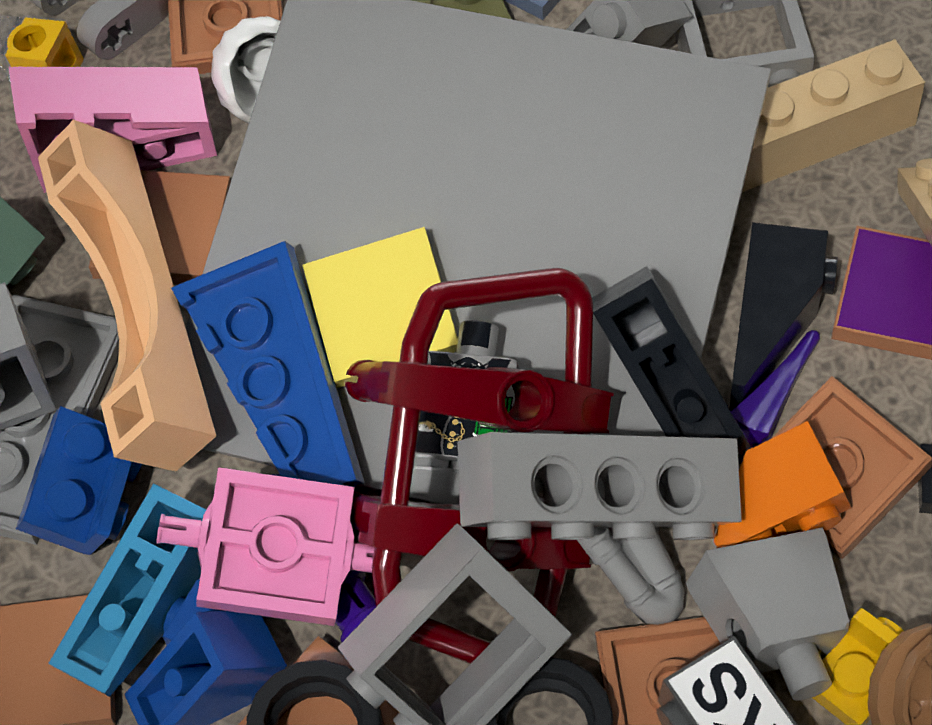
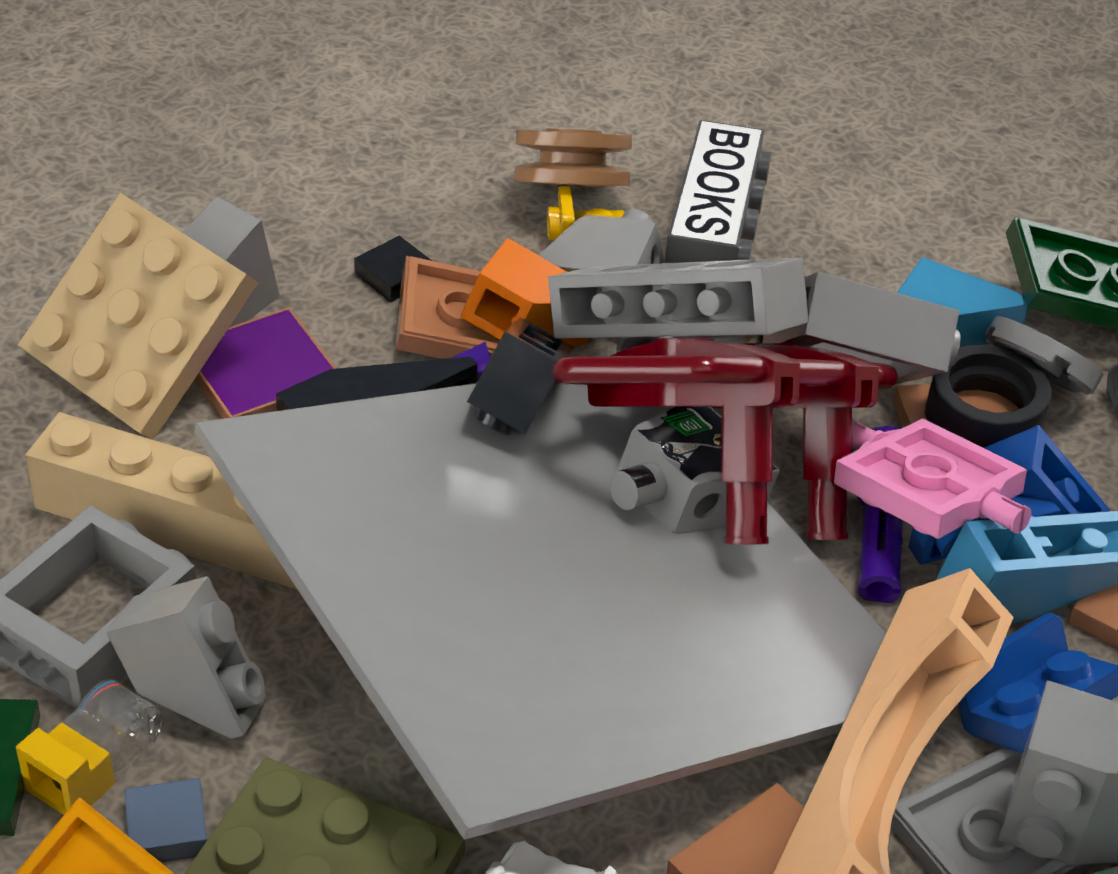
camera: 145 degrees left, 15 degrees down
(275, 362) = (802, 619): blue wing -> none
(369, 299) = (676, 577): light yellow tile -> none

